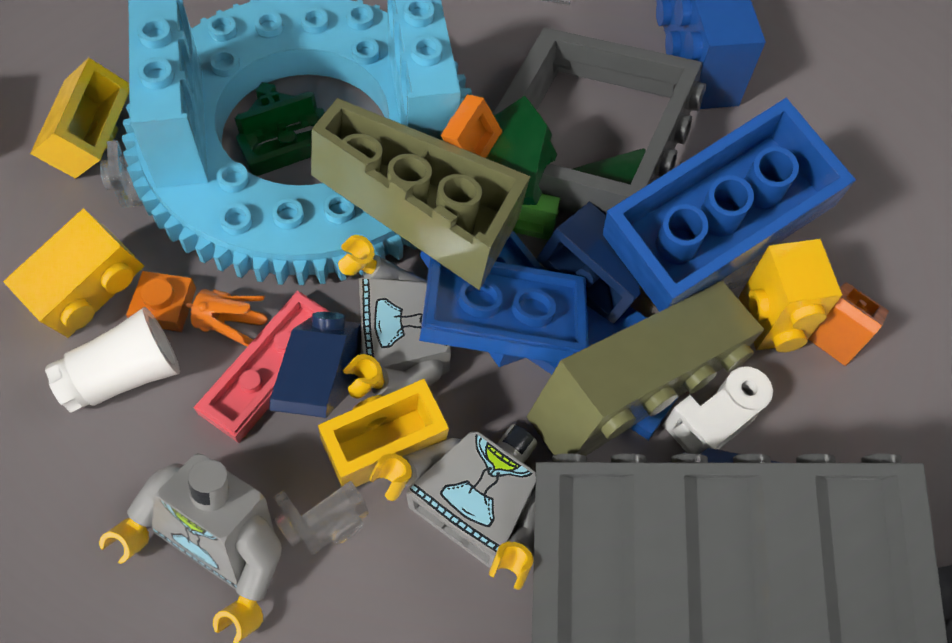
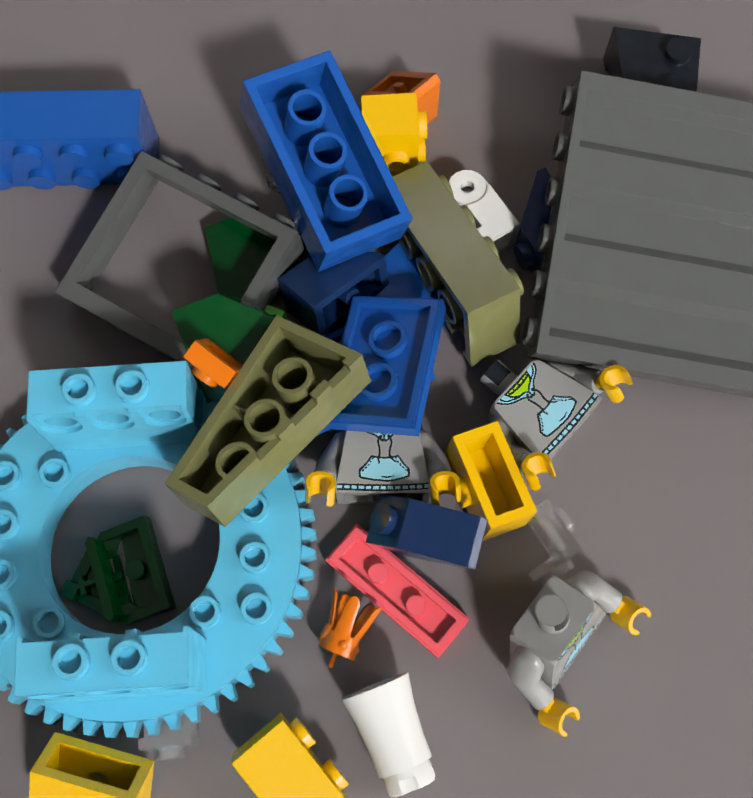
camera: 80 degrees left, 10 degrees up
(164, 297) = (318, 696): orange plate -> none

